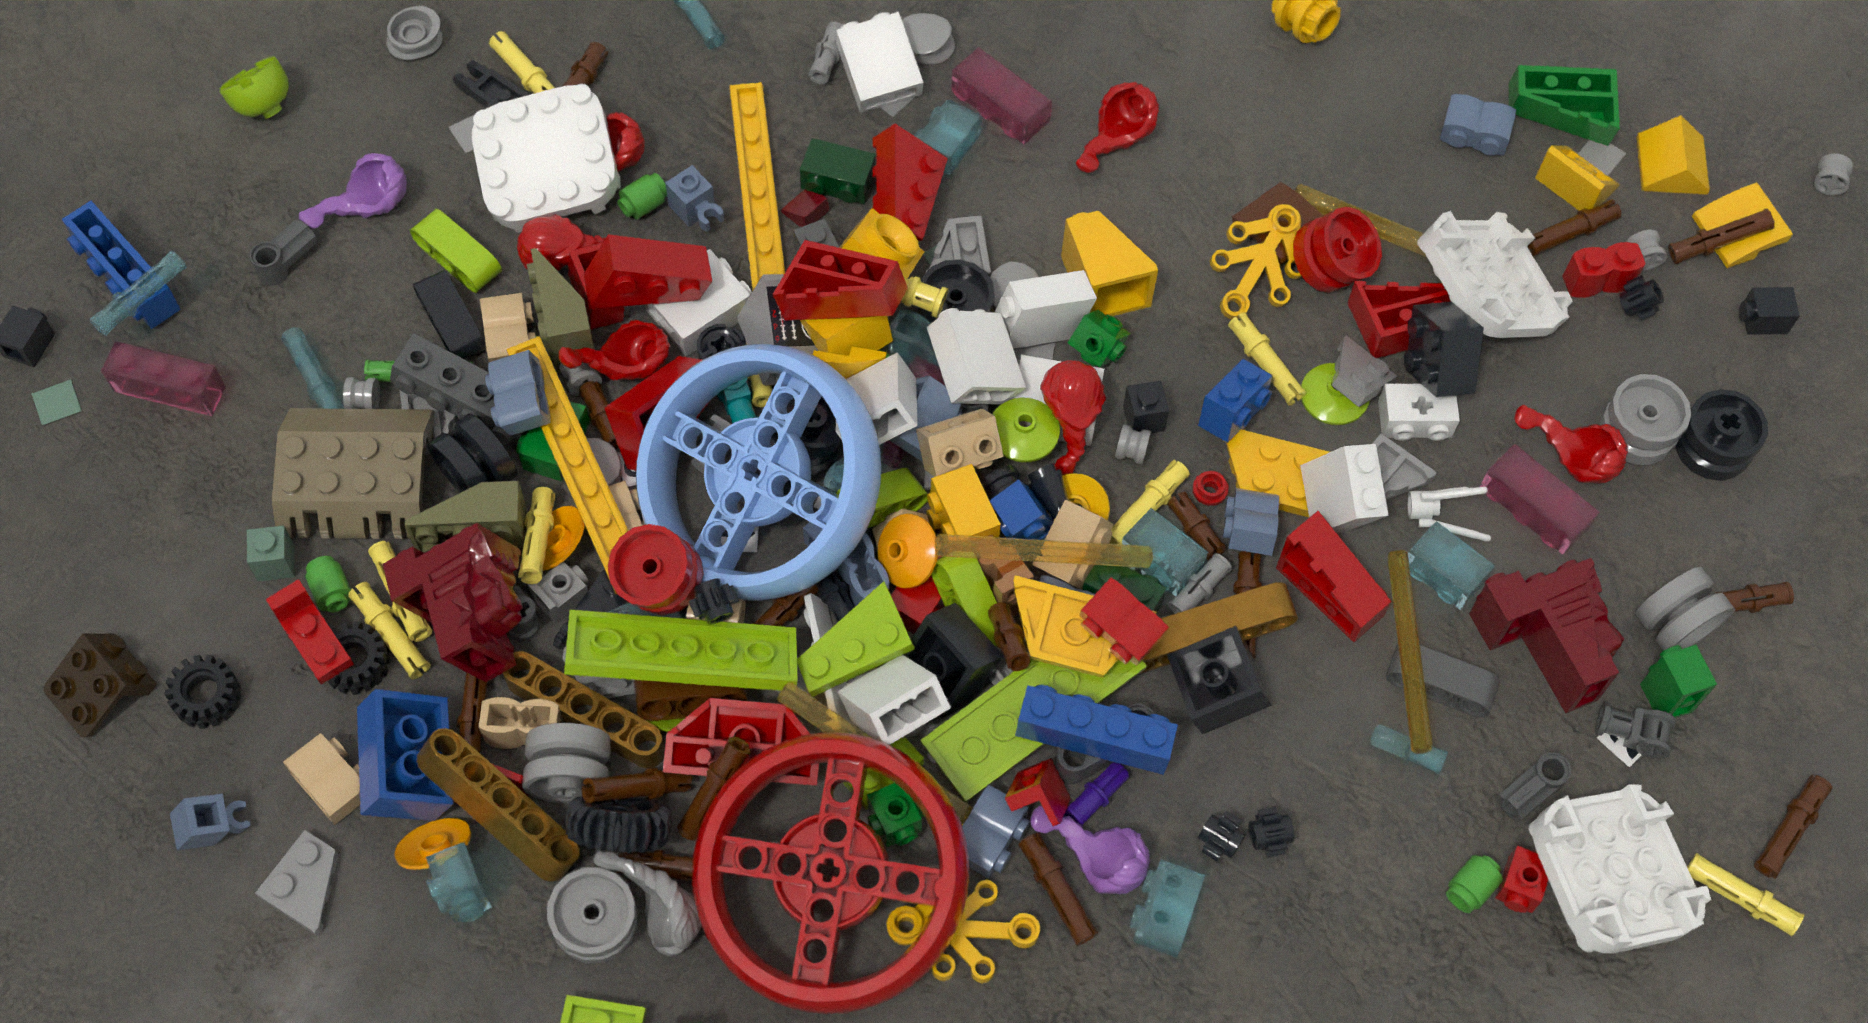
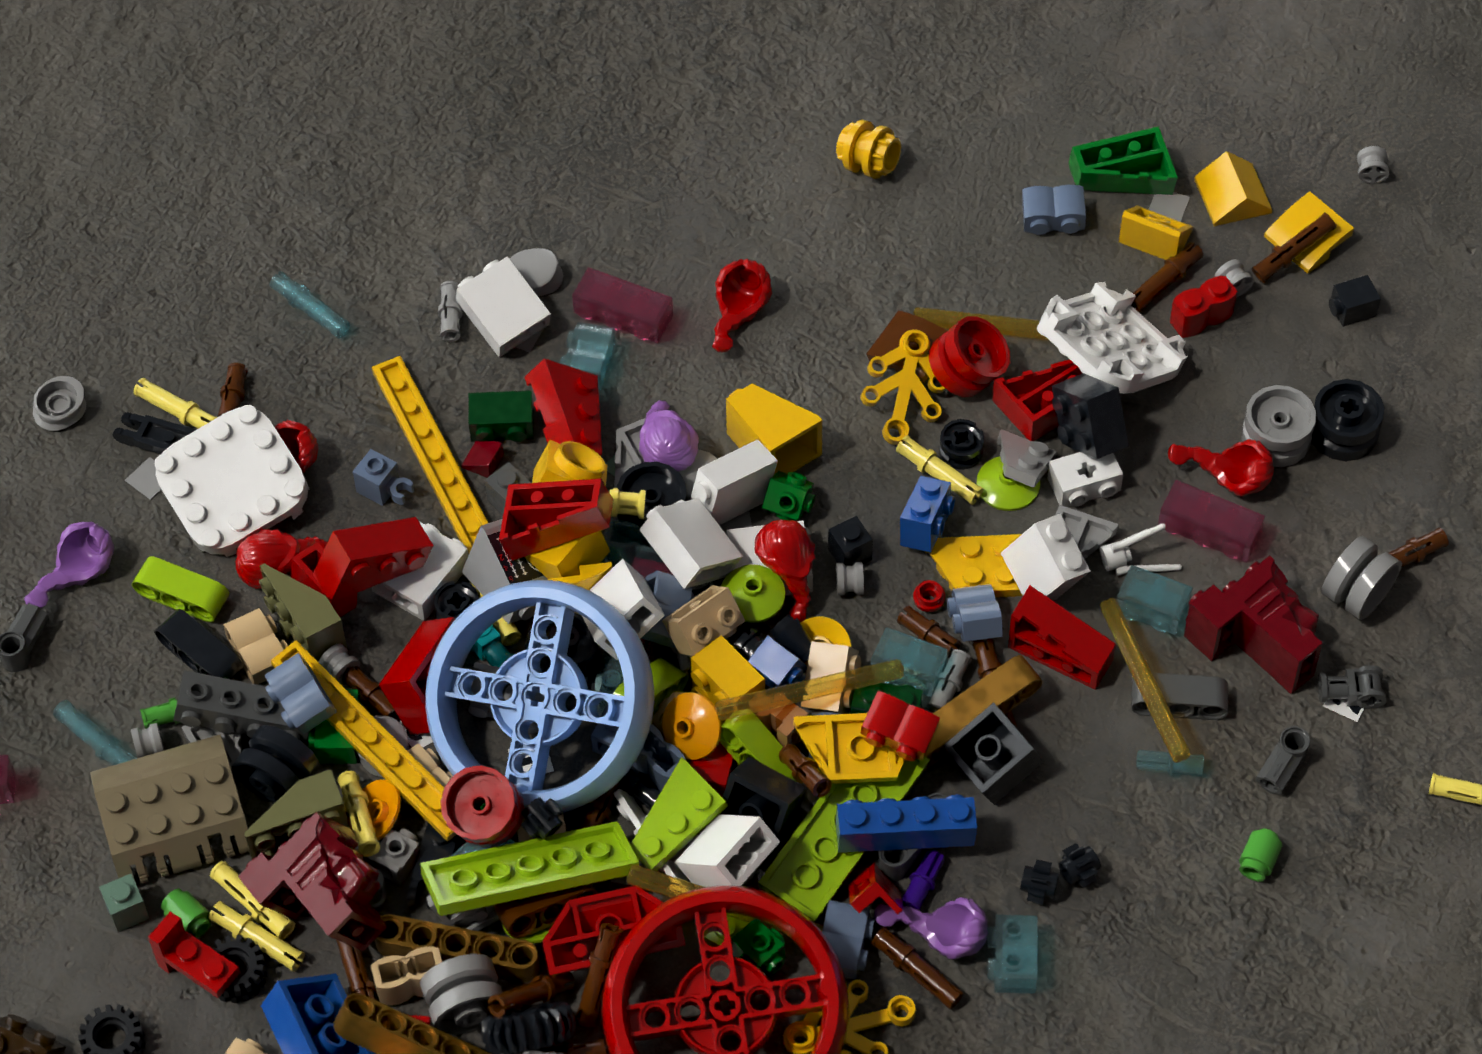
camera: 15 degrees left, 5 degrees down
(628, 354) = (377, 632): red hair -> none
(642, 196) = (332, 490): bright green brick -> none
(994, 243) = (668, 438): none -> medium lavender hair
(1157, 493) = (884, 616): light yellow pin -> none
(1299, 337) = (961, 443): none -> black wheel
(1522, 881) = (1300, 838): red brick -> none
(1618, 870) = (1372, 805): white plate -> none
(1641, 297) = (1243, 321): black gear -> none
(1678, 681) = (1374, 636): green brick -> none

